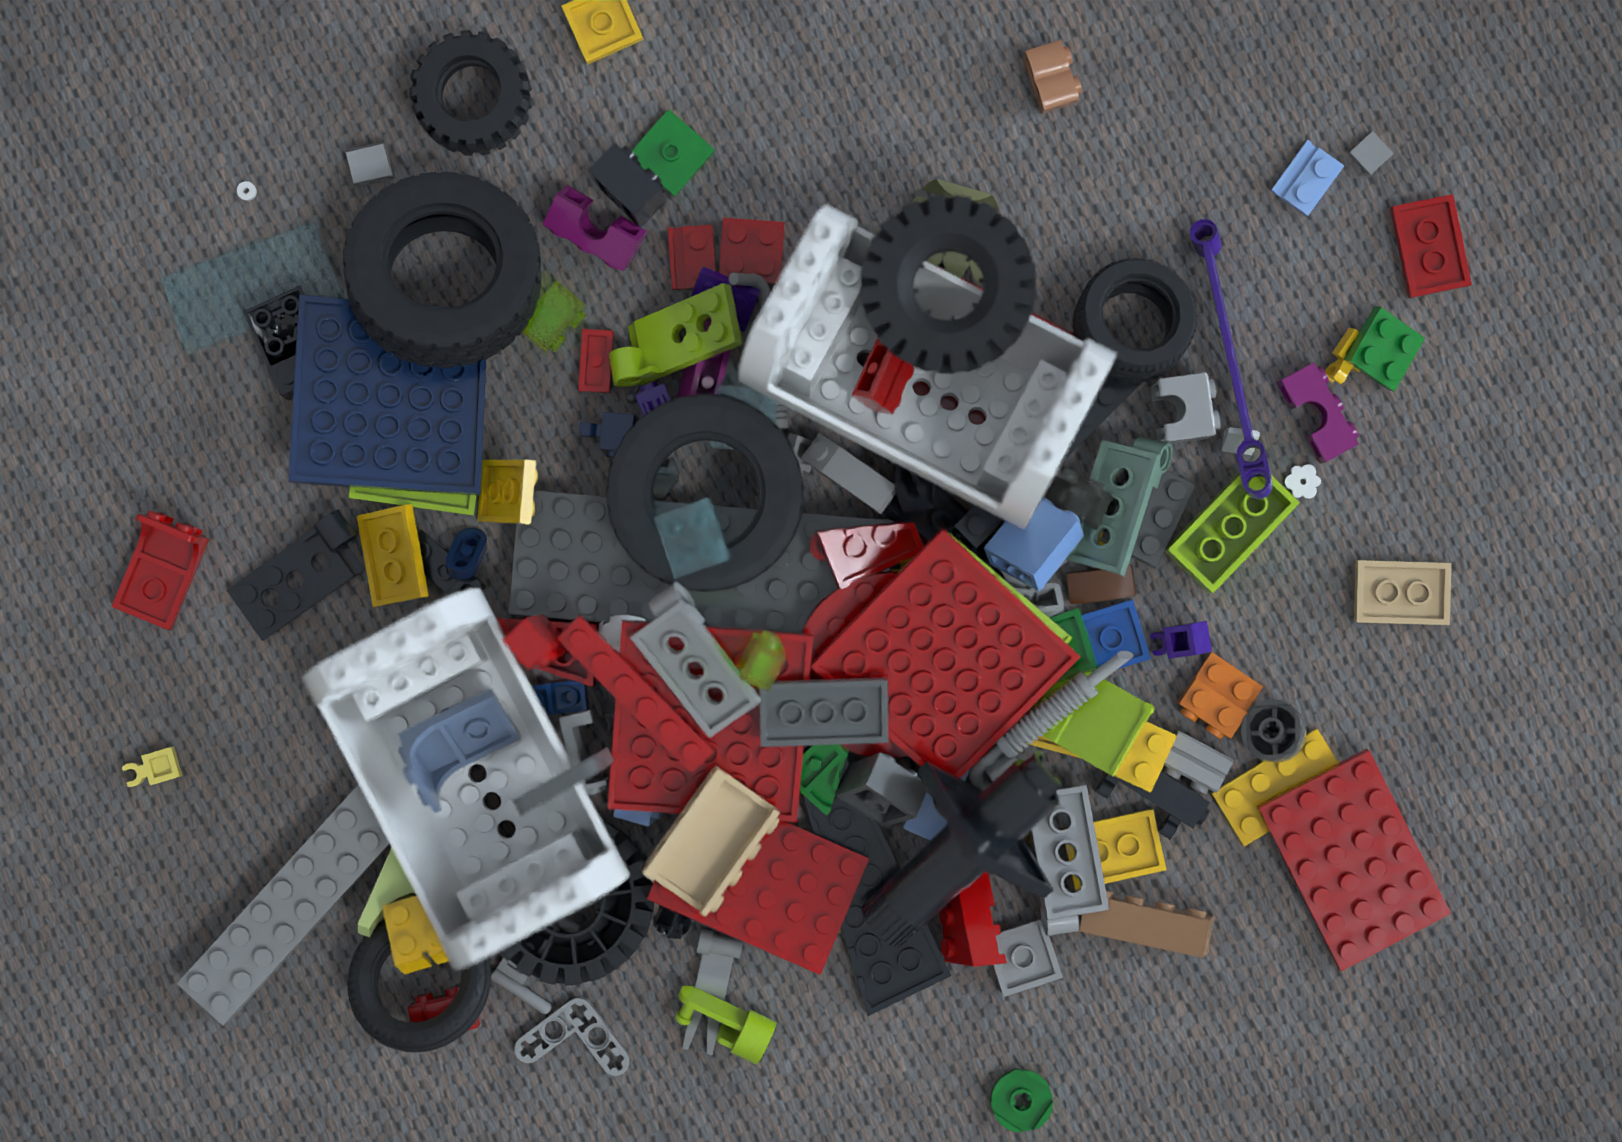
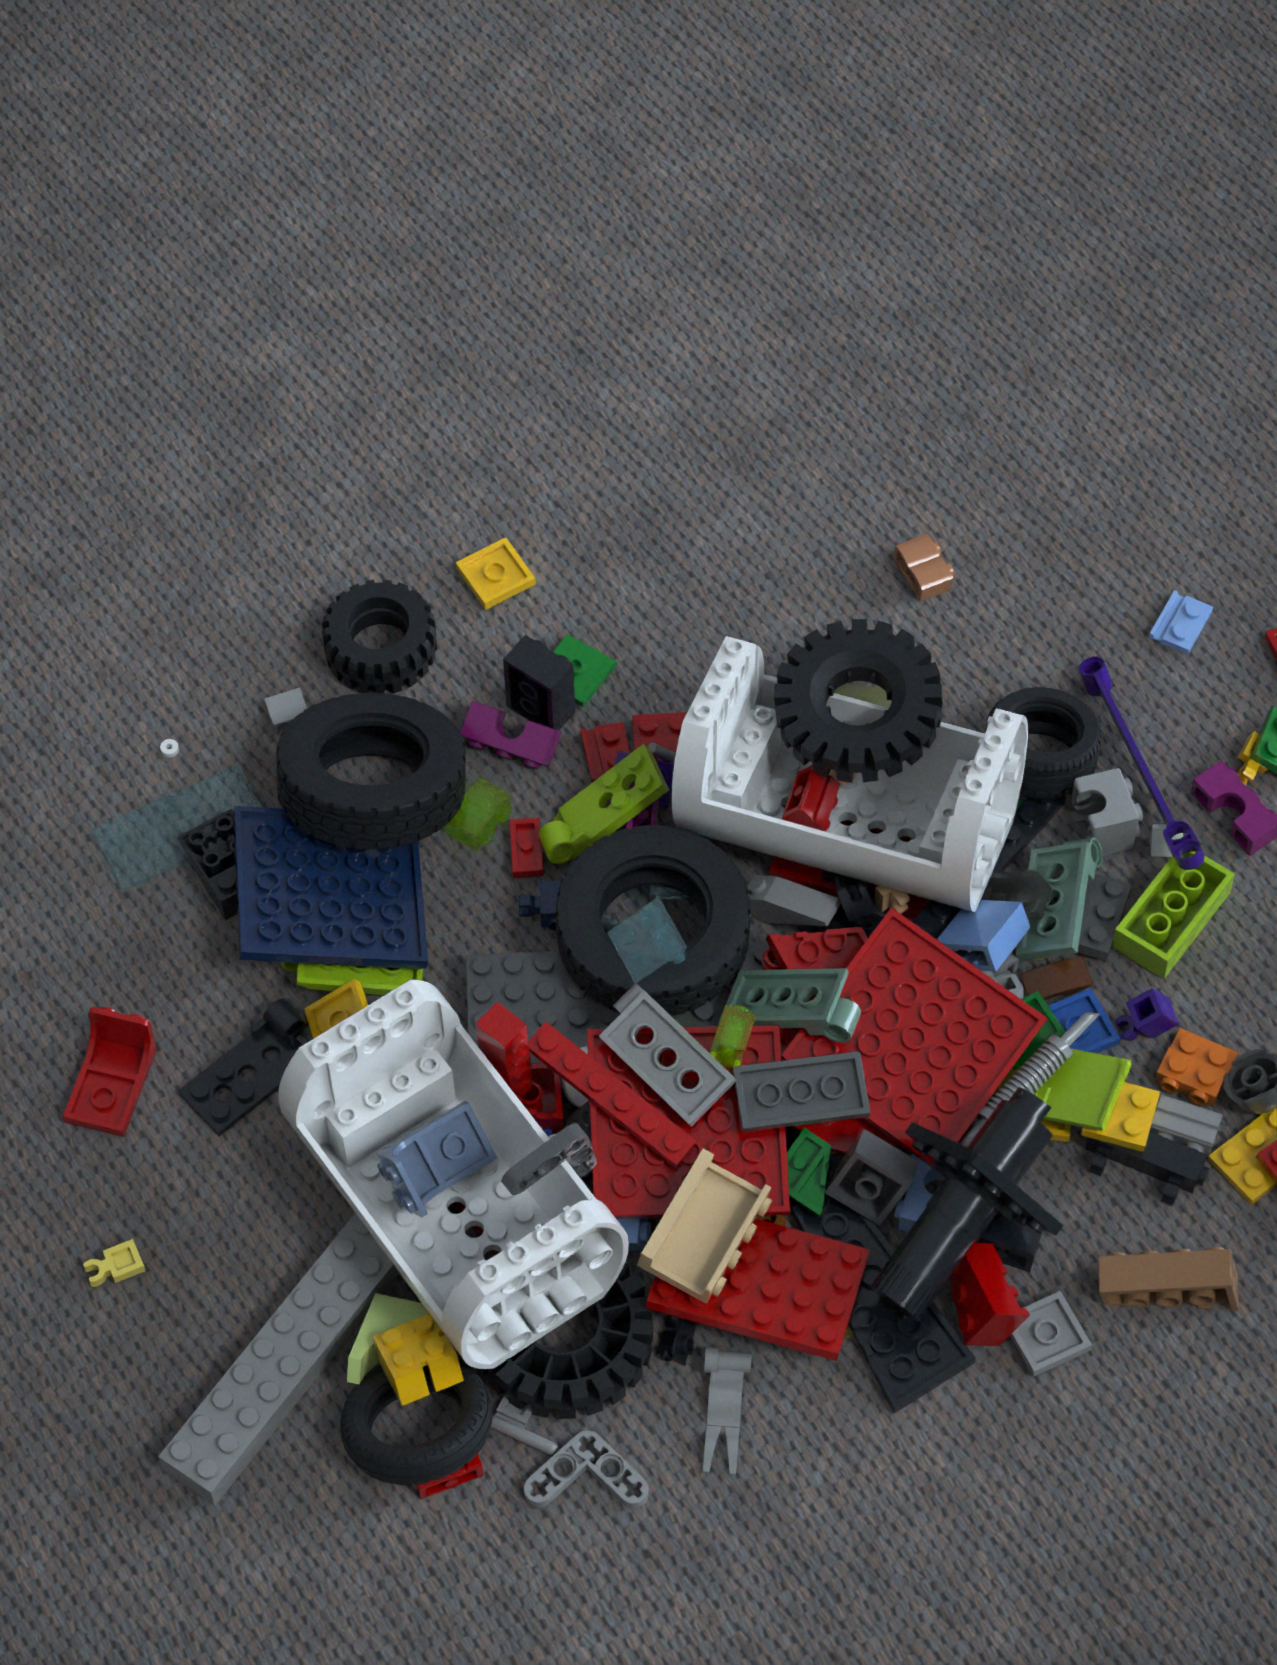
camera: 10 degrees left, 30 degrees down
(507, 491) = (456, 952): yellow plate -> none
(743, 1032) = (776, 1439): lime piece -> none
(856, 638) = (823, 1015): none -> sand green hinge
(1024, 1117) = (1077, 1493): green plate -> none
(1061, 907) = (1070, 1261): light grey hinge -> none
(1126, 846) = (1119, 1219): yellow plate -> none
(1307, 473) = (1239, 864): white plant -> none
(1370, 153) = (1235, 596): light grey tile -> none

